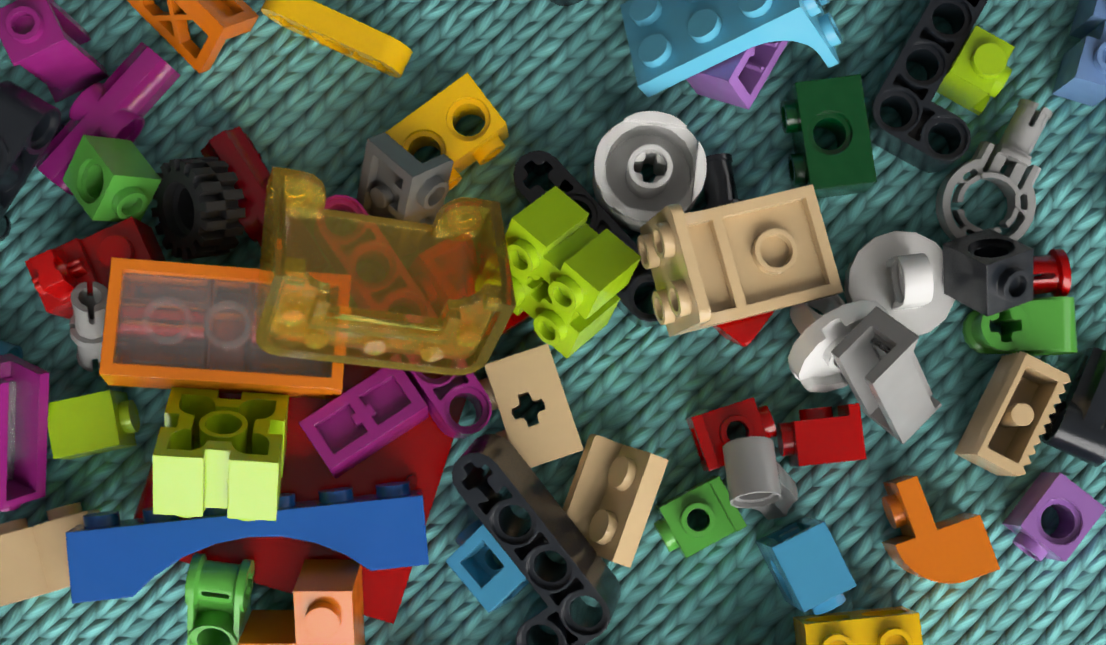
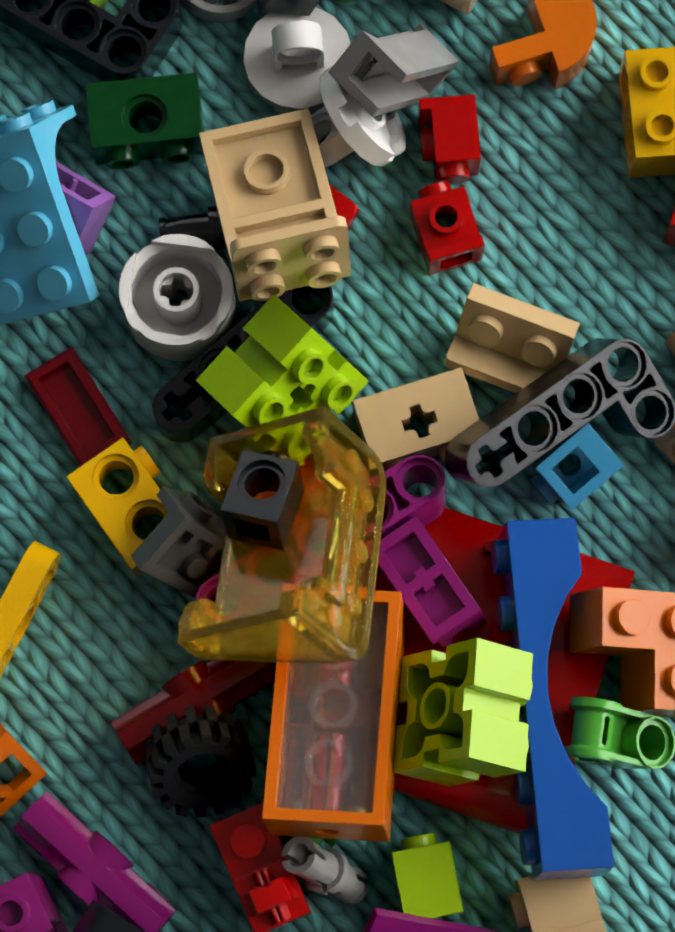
camera: 90 degrees left, 5 degrees down
(111, 179) = (165, 872): bright green brick -> none
(411, 260) = (269, 519): none -> black brick
(543, 86) = (75, 406): none -> dark red tile
(714, 501) = (526, 283): bright green brick -> none
(757, 478) = (491, 197): light grey piece -> none
(807, 565) = (577, 155): dark azure brick -> none

